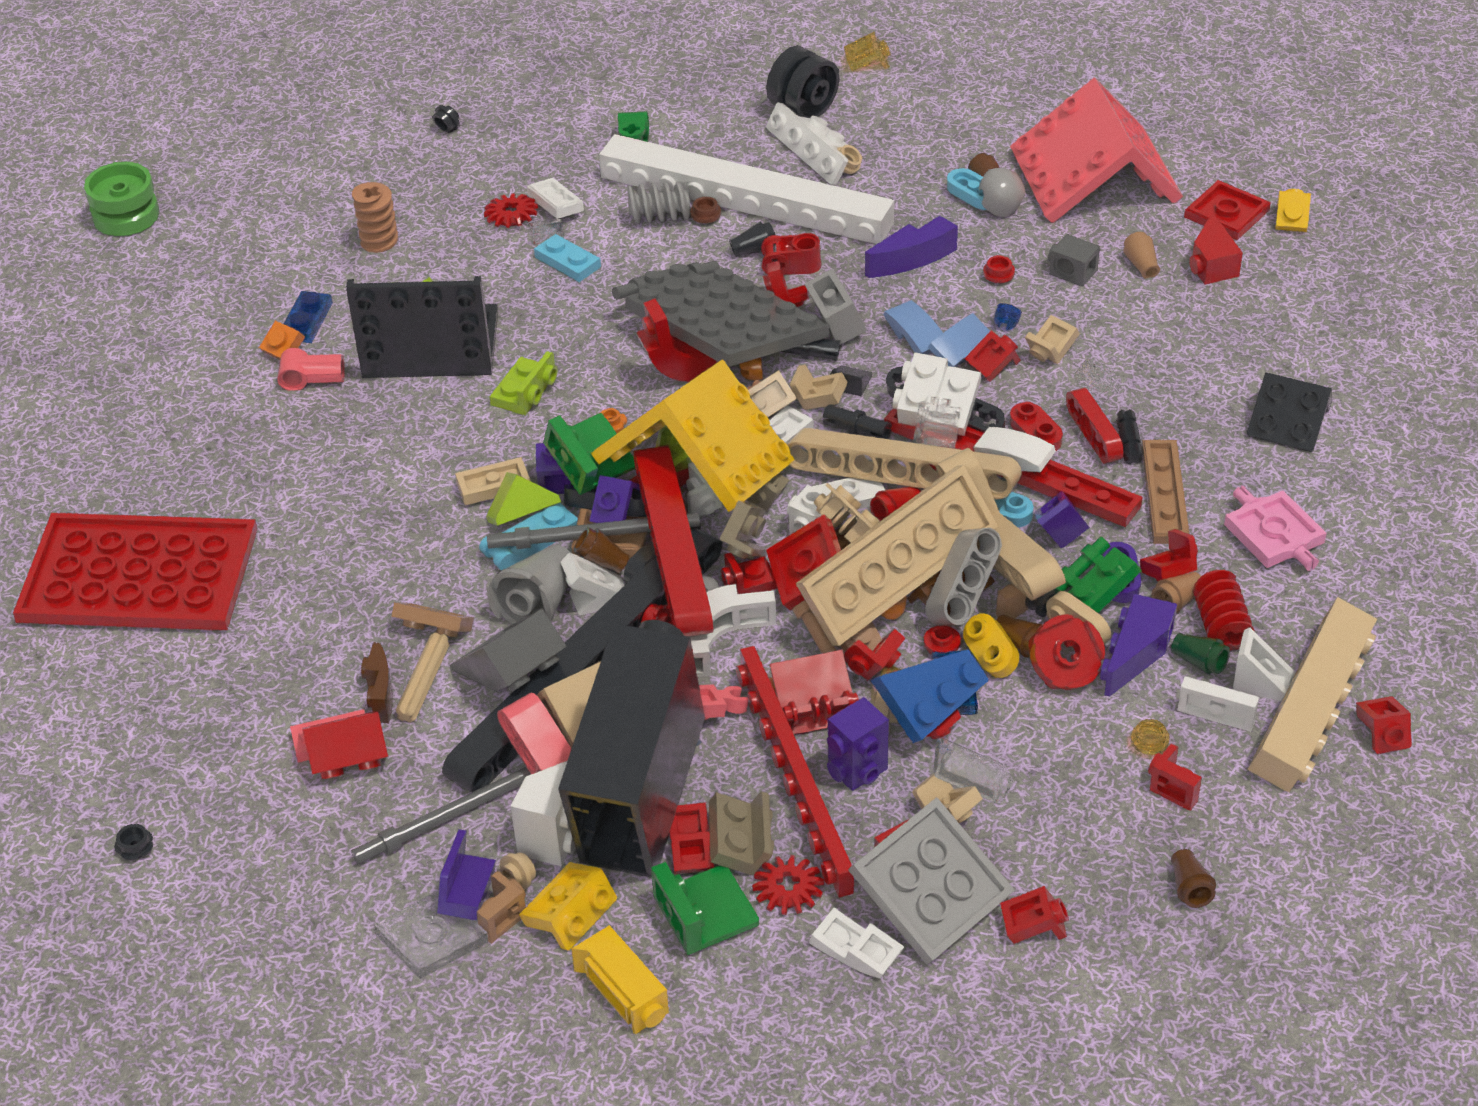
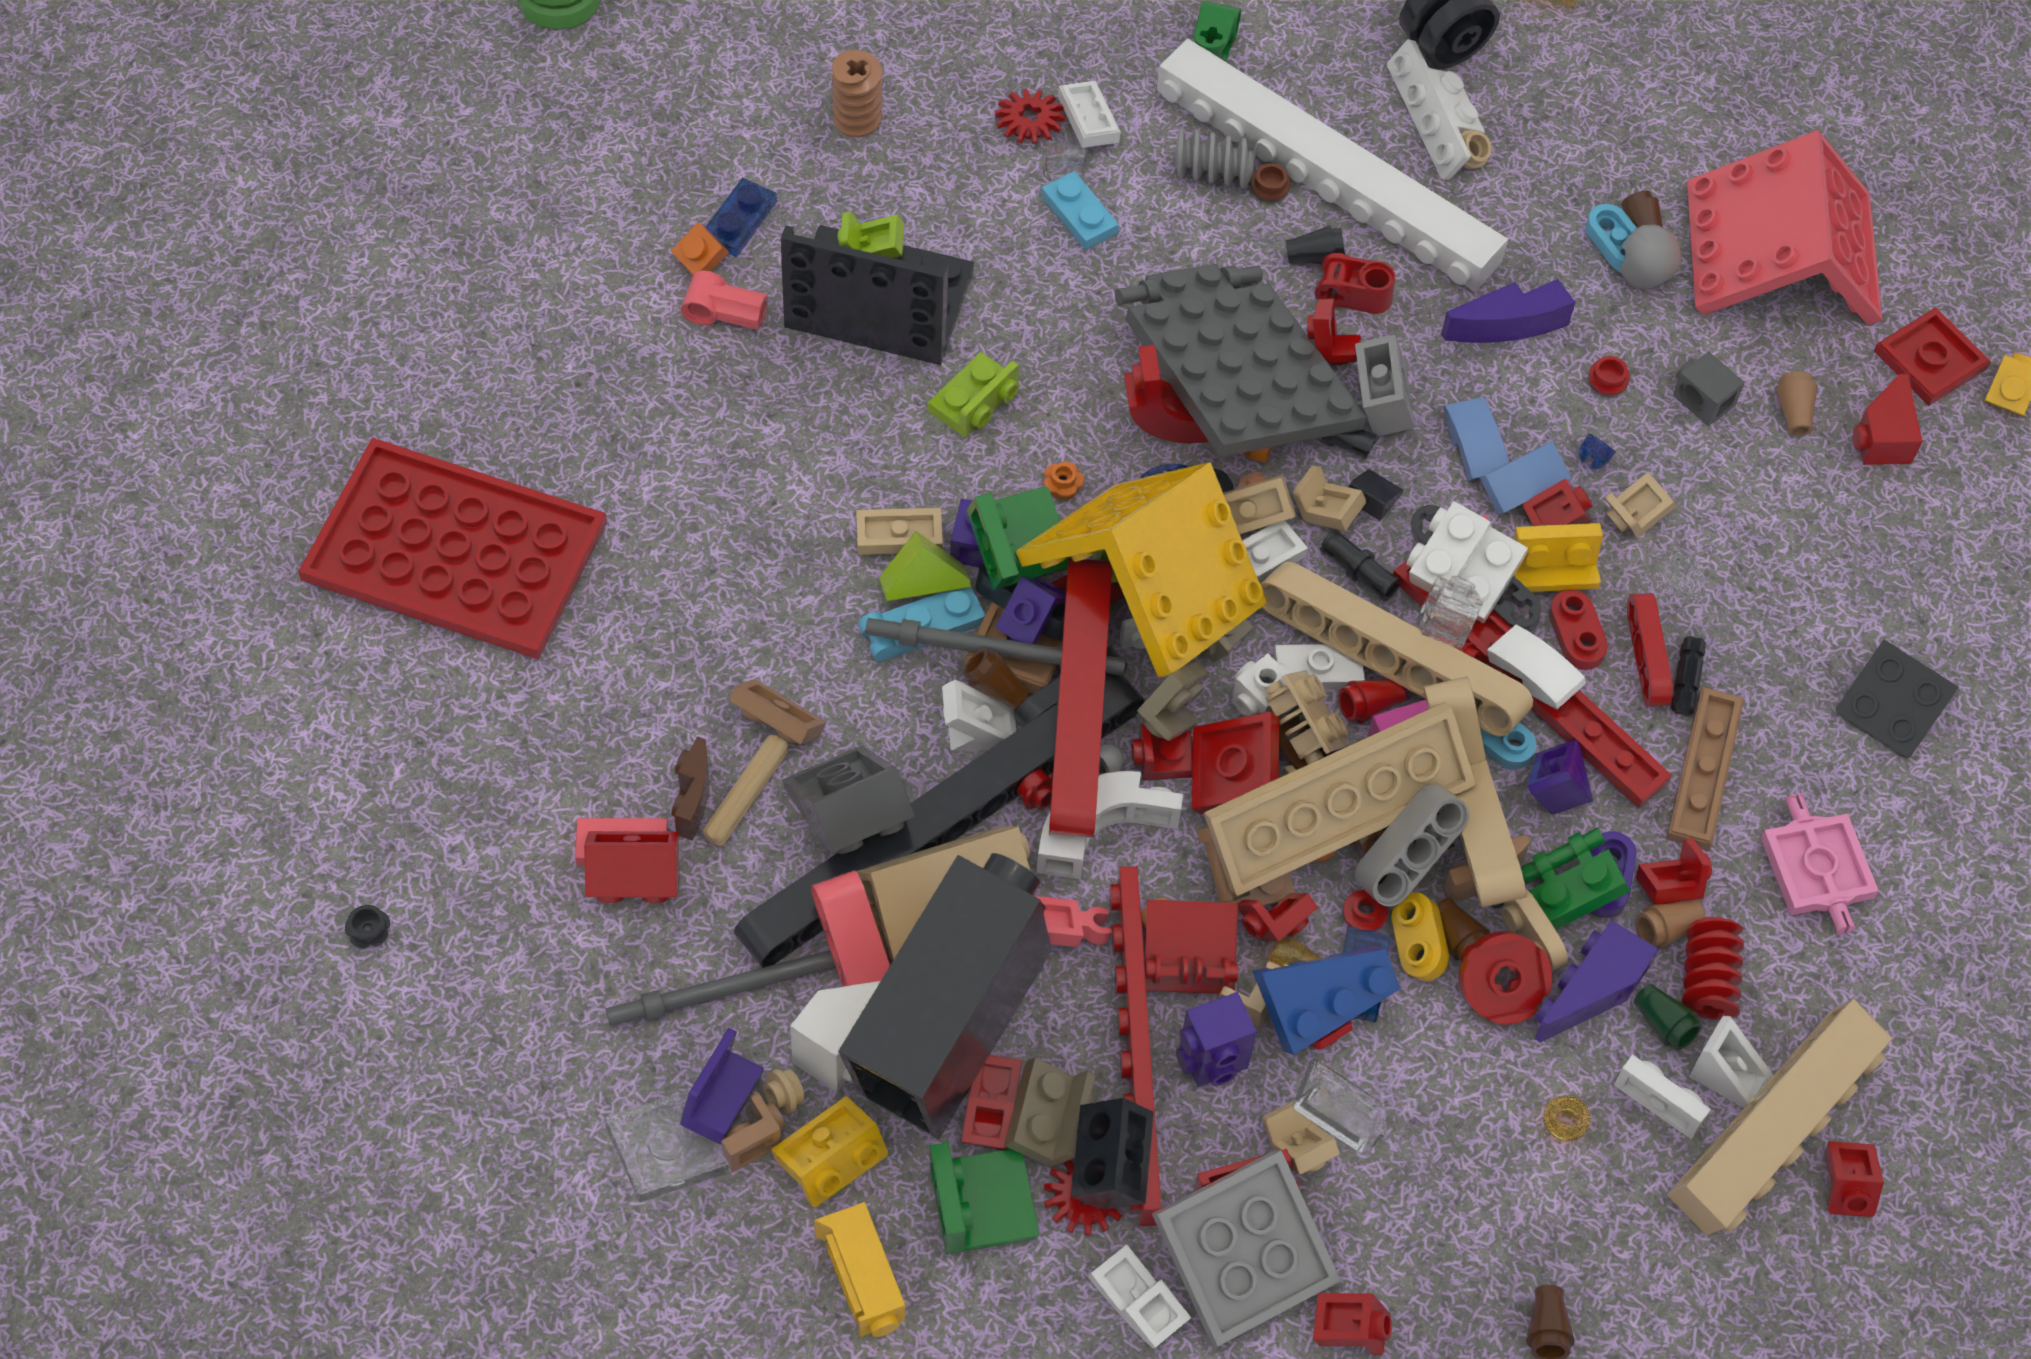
camera: 10 degrees right, 15 degrees up
(529, 586) = (902, 706): light grey cone -> none
(801, 839) = (1112, 1154): none -> black brick
(1007, 379) = (1560, 557): none -> yellow bracket
(1173, 781) = (1570, 1188): red bracket -> none

